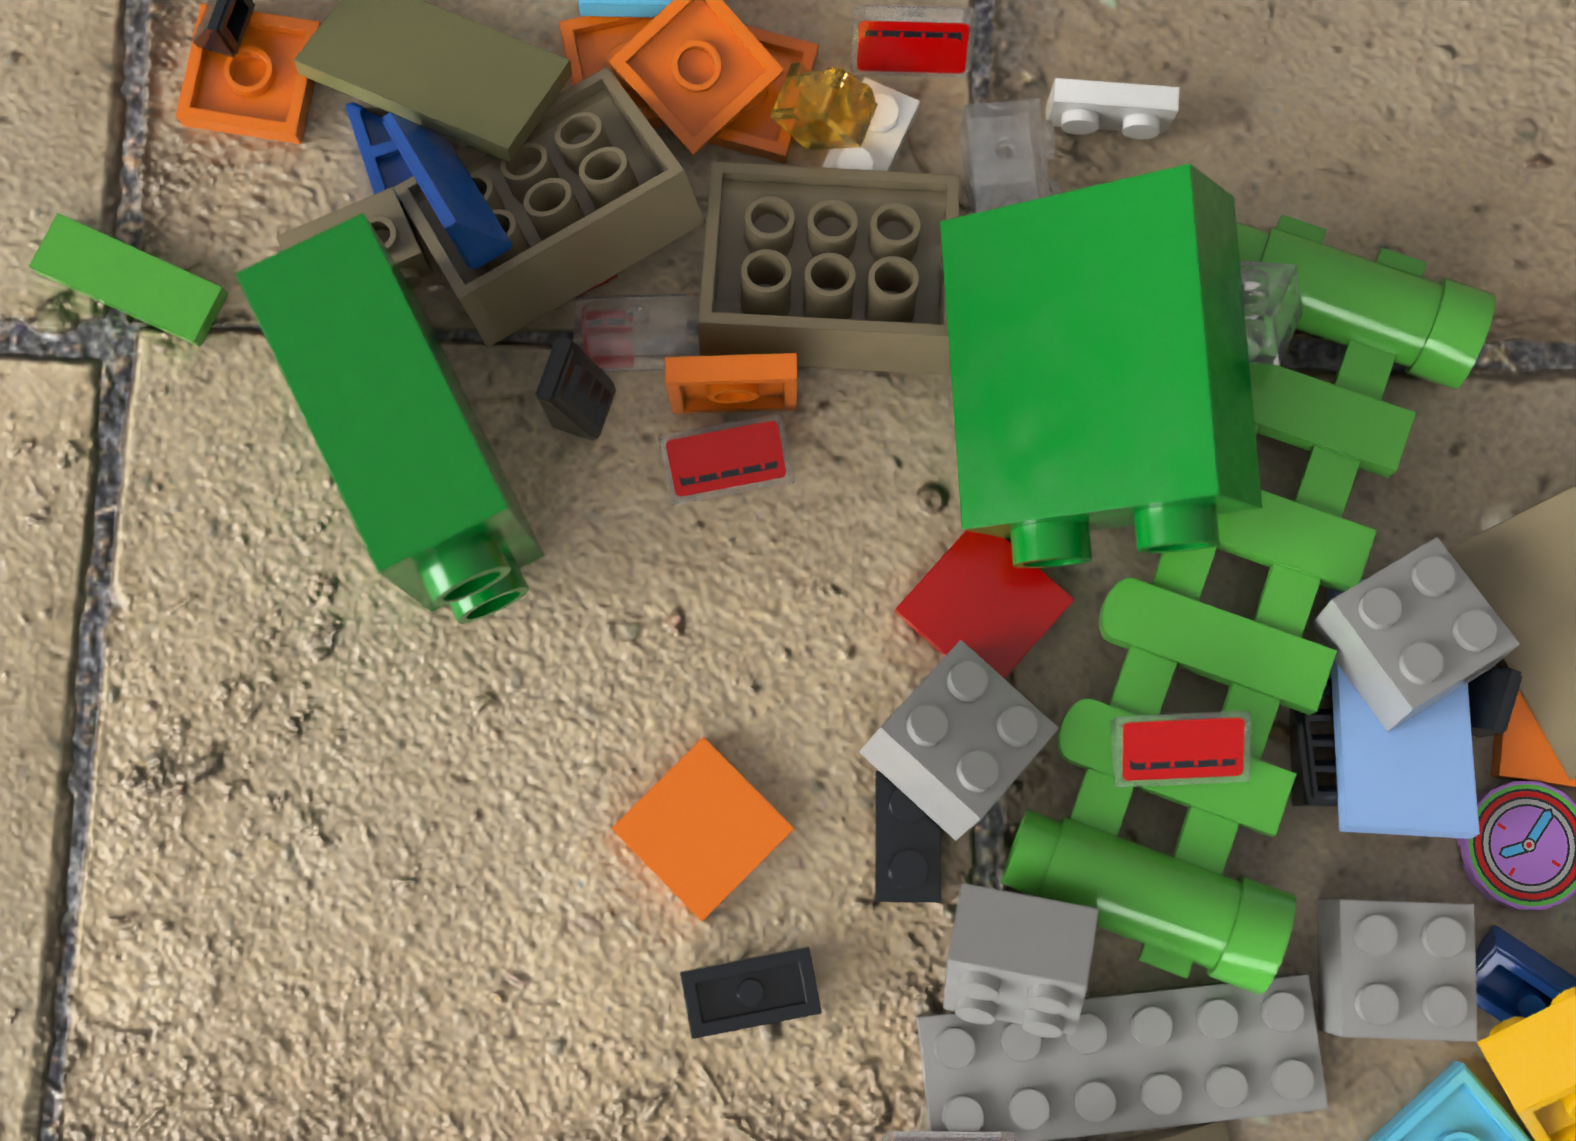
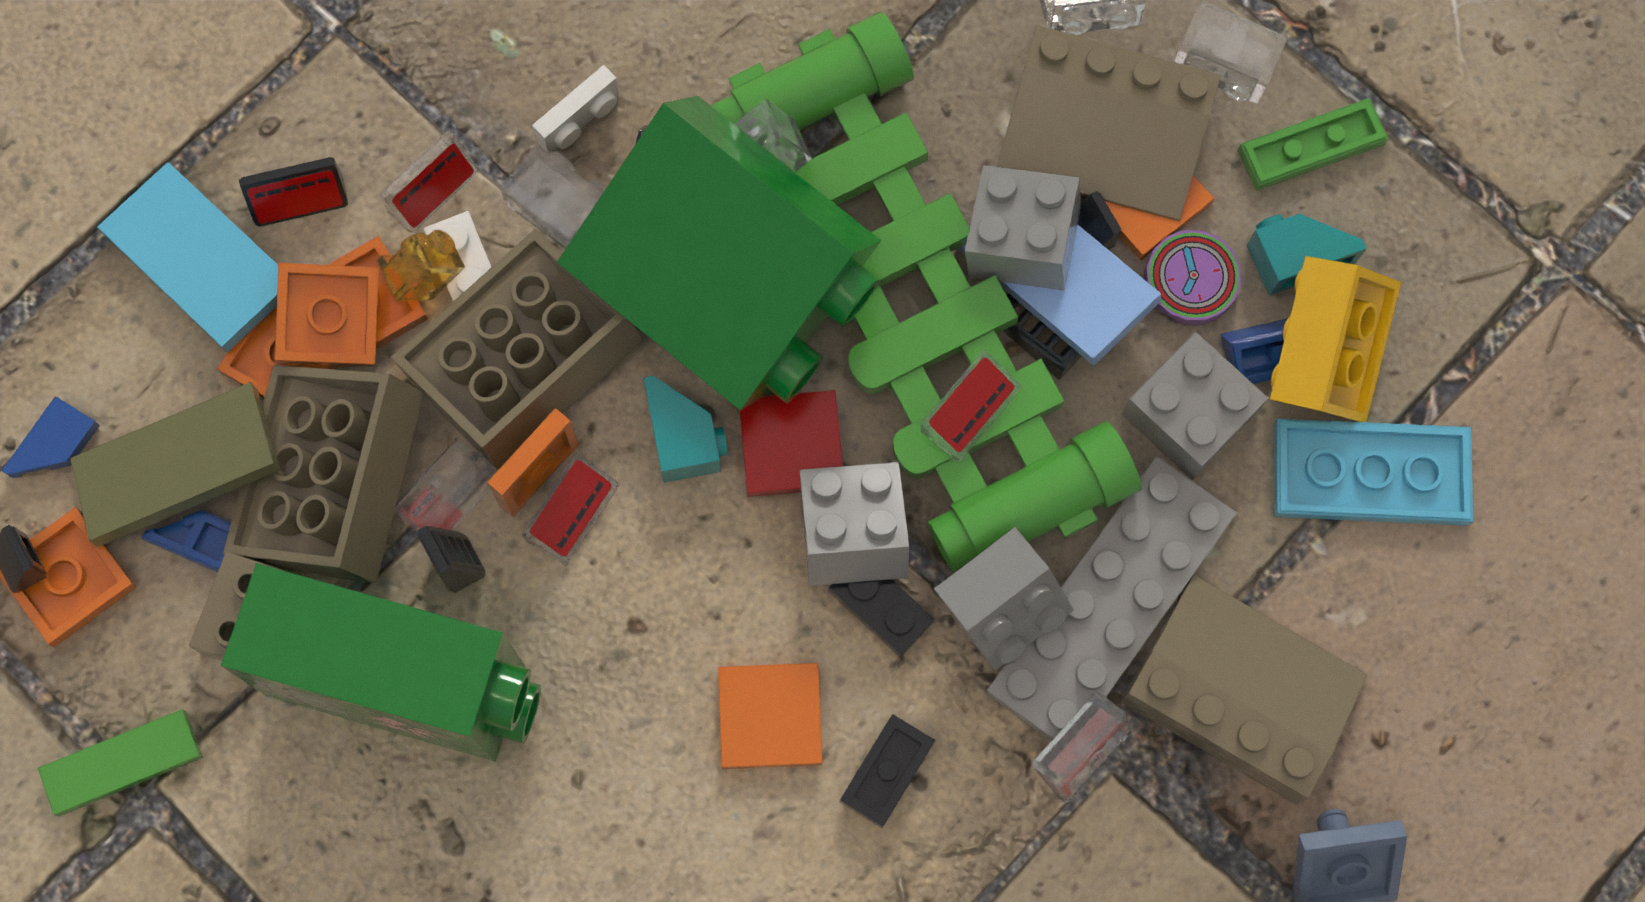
camera: 50 degrees left, 5 degrees down
(449, 191) = (264, 520): blue slope -> none
(894, 495) = (683, 434): none -> teal slope

